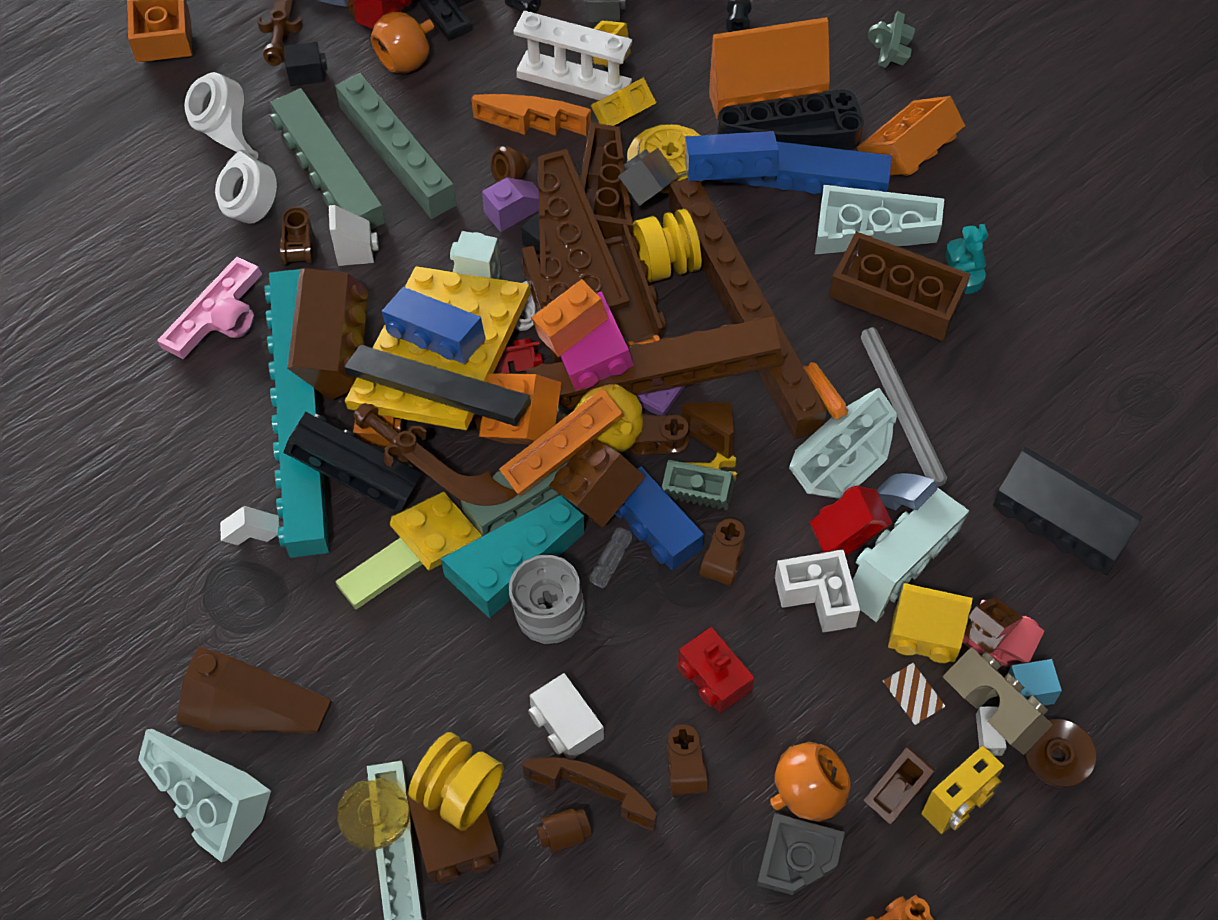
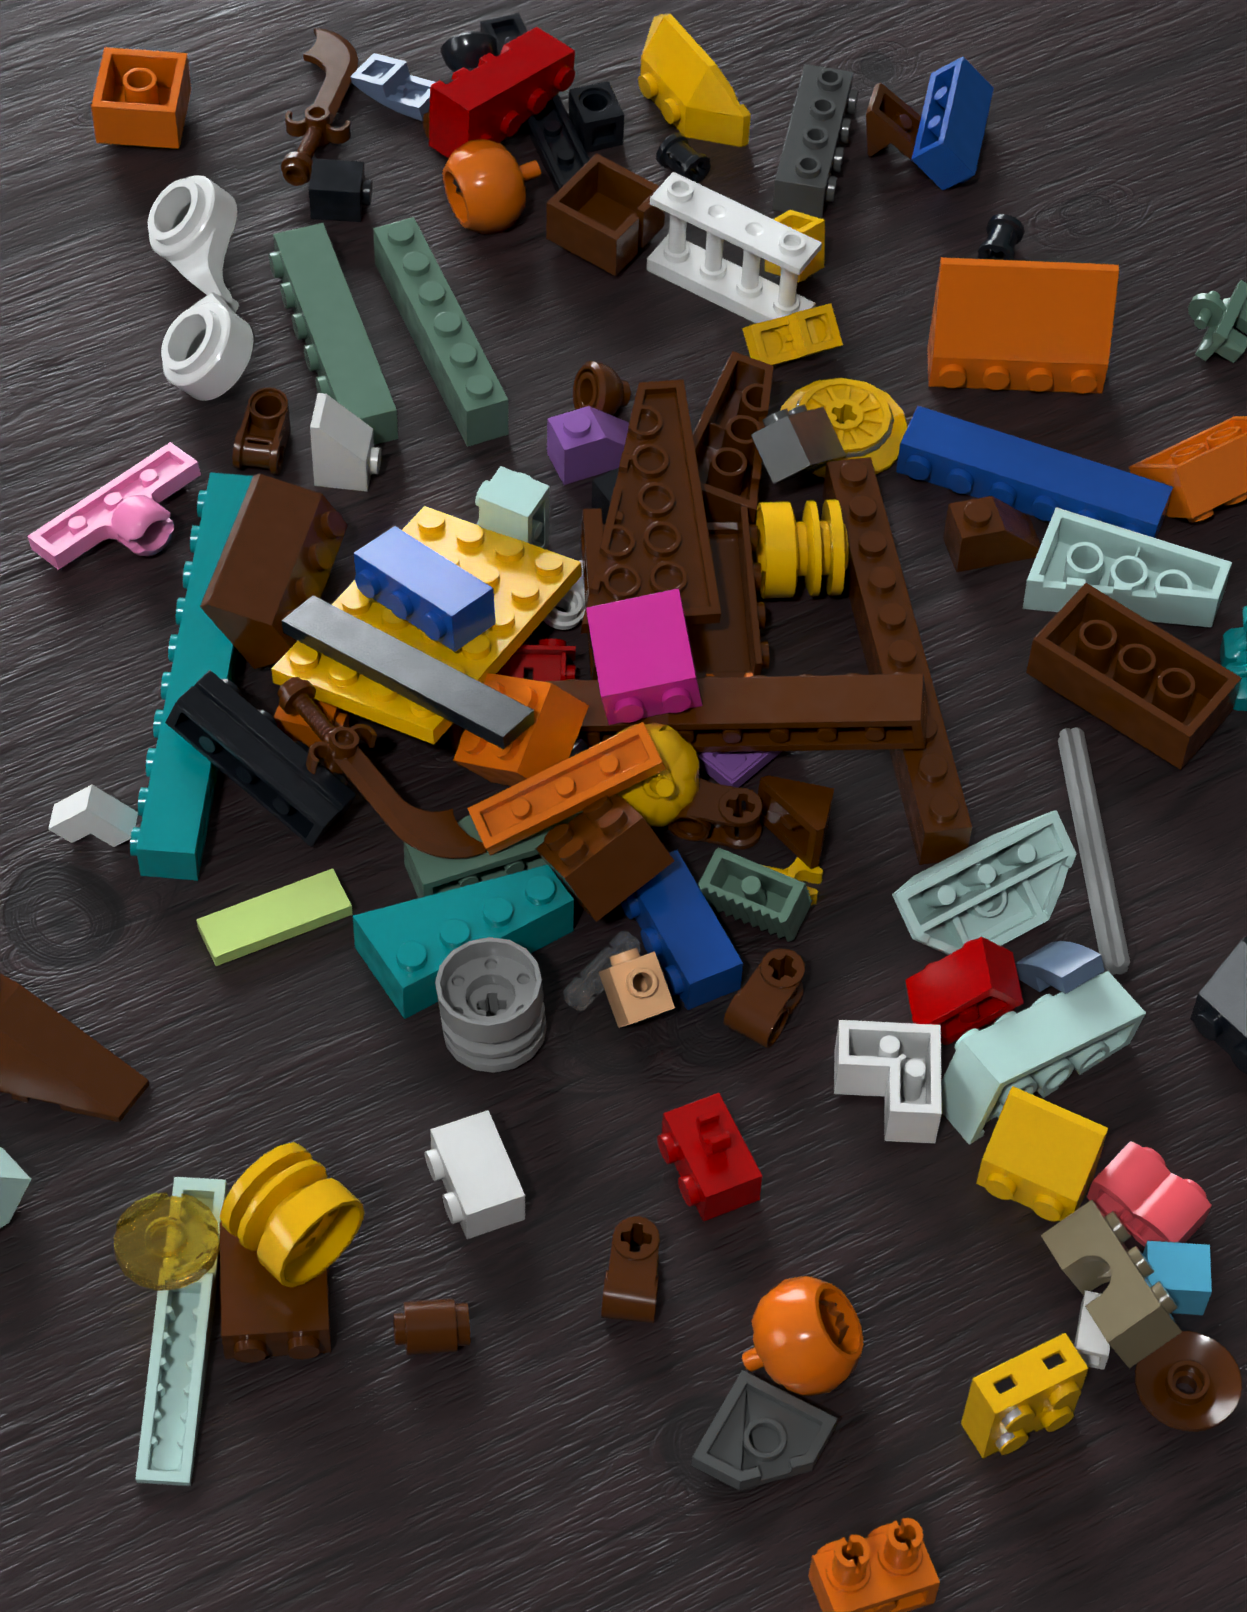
camera: 10 degrees right, 5 degrees down
(434, 529) = (354, 875): yellow plate -> none
(482, 46) = (604, 214): none -> reddish brown piece
(522, 112) = (642, 320): orange slope -> none
(550, 771) = (438, 1242): reddish brown slope -> none
(569, 318) = (620, 614): orange brick -> none
(638, 565) = (635, 987): none -> light nougat brick
(731, 156) = (927, 438): blue brick -> none
(781, 210) = (988, 534): none -> reddish brown slope
(813, 119) = (1067, 412): black beam -> none
(826, 391) = (978, 801): orange axle -> none
(900, 785) = (936, 1371): reddish brown slope -> none
(914, 693) = (996, 1255): sticker -> none
(991, 624) = (1131, 1173): reddish brown slope -> none

